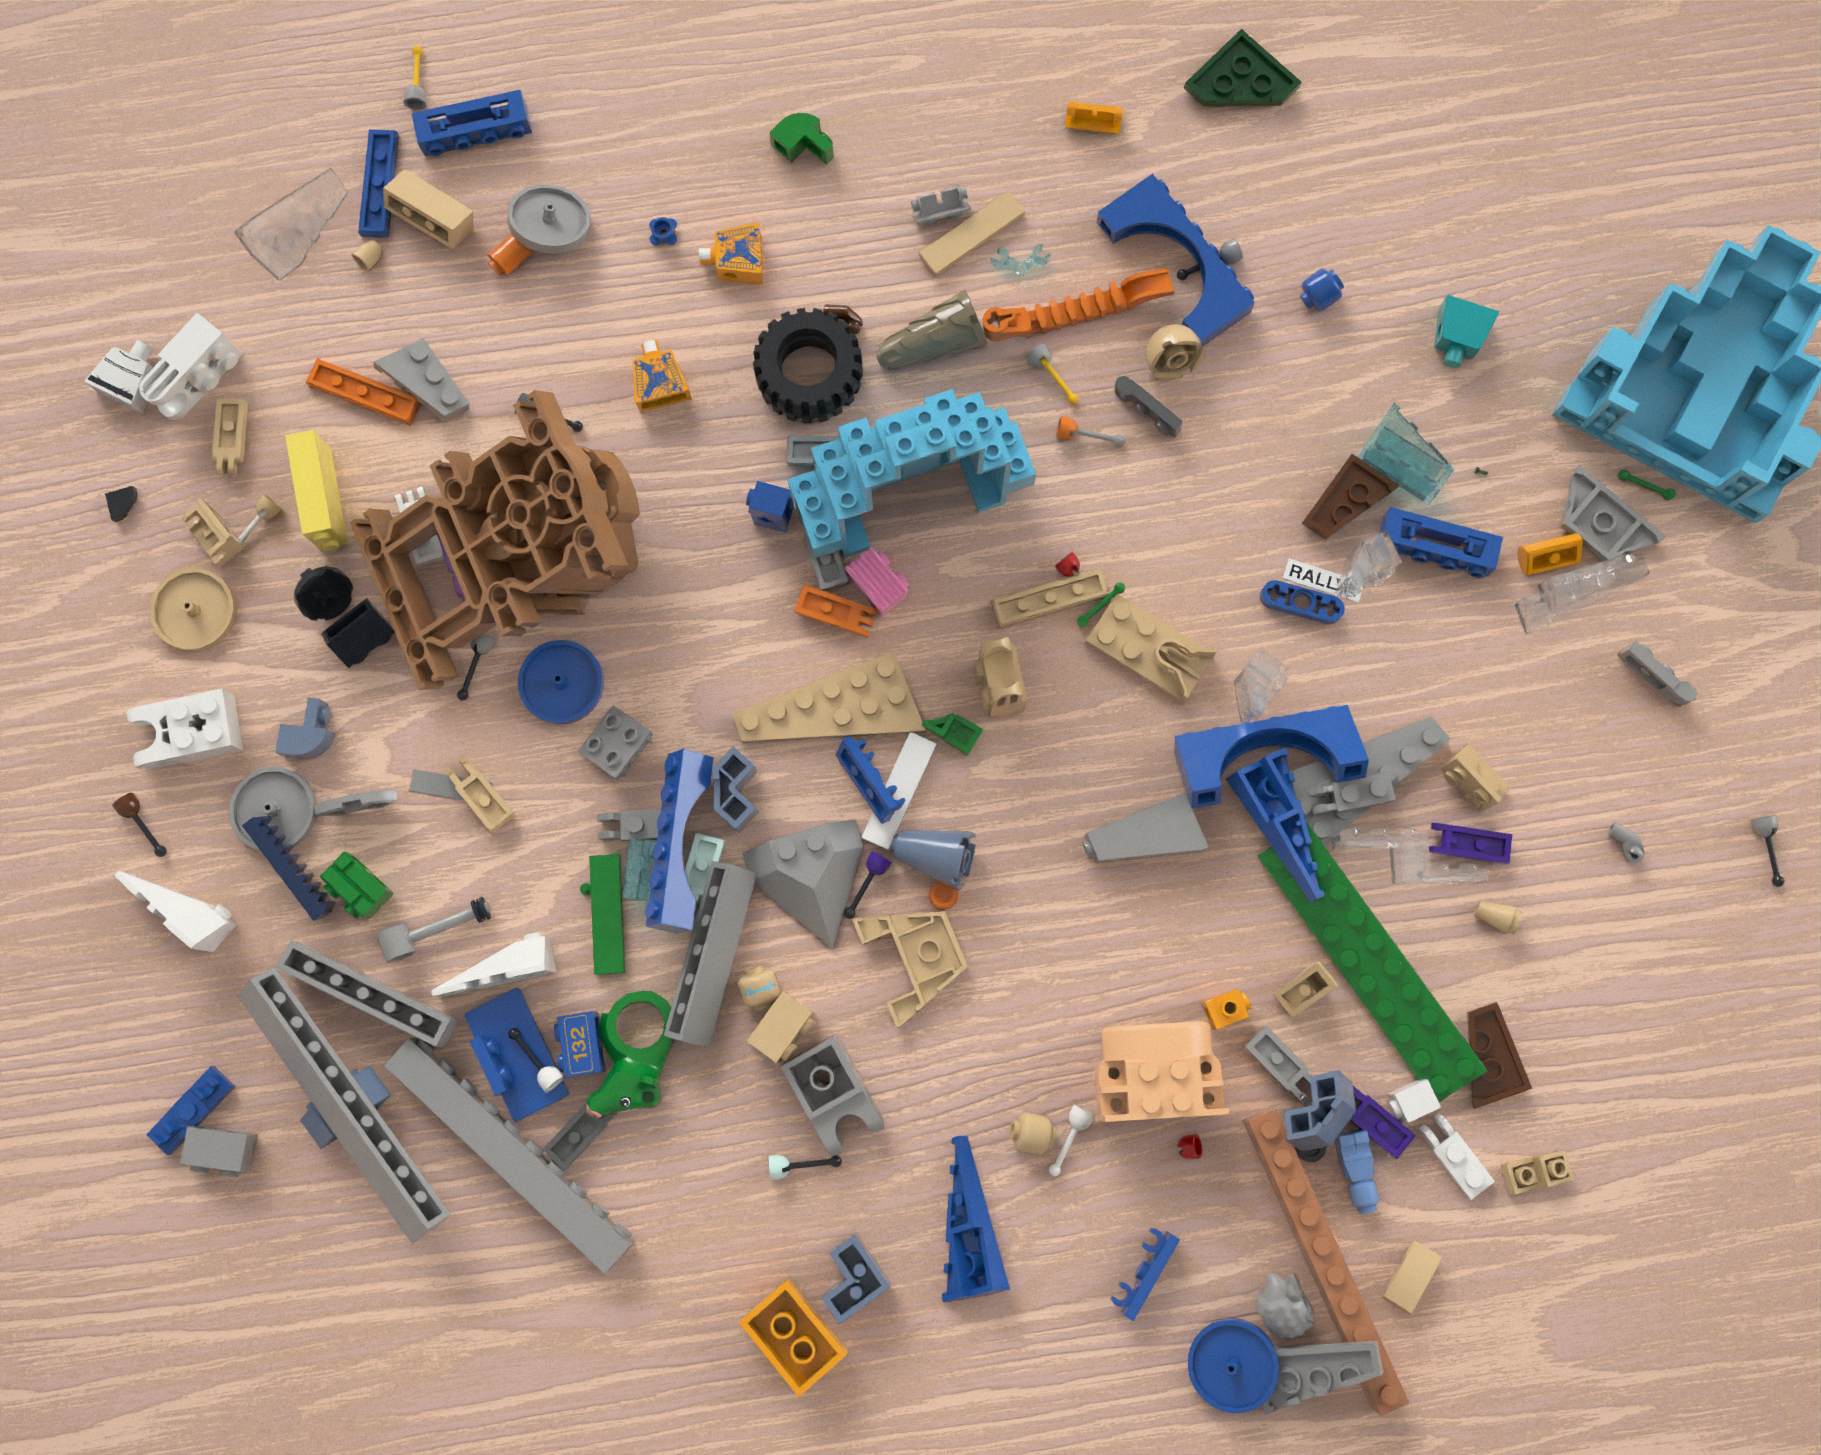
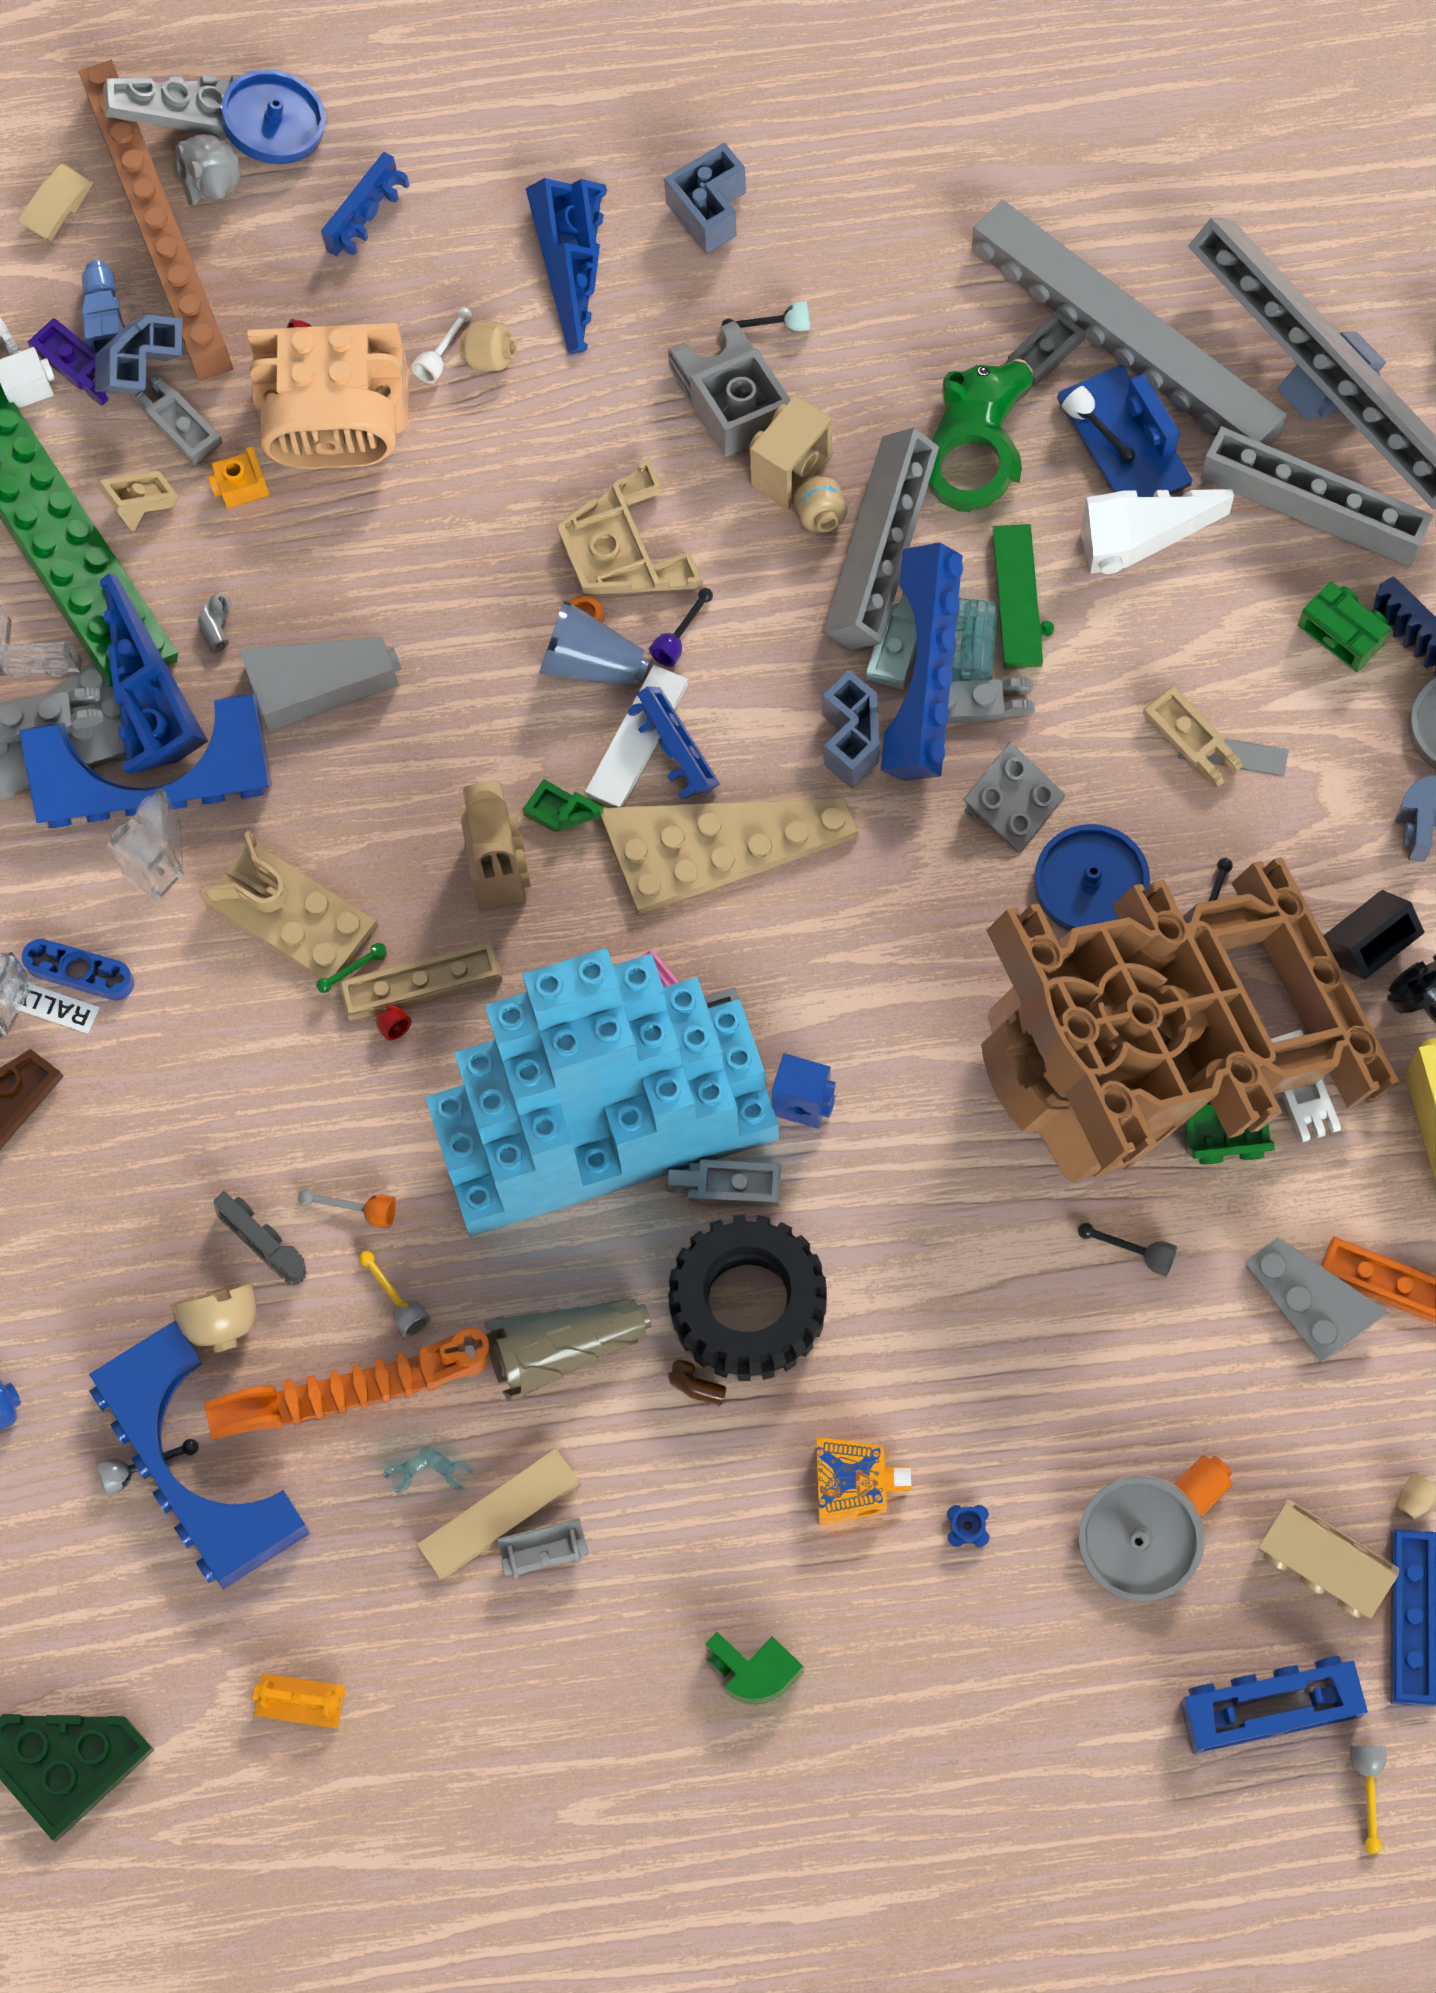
camera: 175 degrees left, 10 degrees down
(355, 802) = (1337, 723): light grey tile -> none
(399, 942) = (1282, 560): light grey piece -> none
(579, 1044) = (1043, 444): blue brick -> none
(658, 379) = (968, 1291): torso -> none
(793, 1336) = (779, 141): light orange brick -> none
(810, 874) = (754, 635): light grey wedge -> none
(834, 610) = (717, 963): orange hinge -> none
(1234, 886) = (212, 620): none -> light grey arm

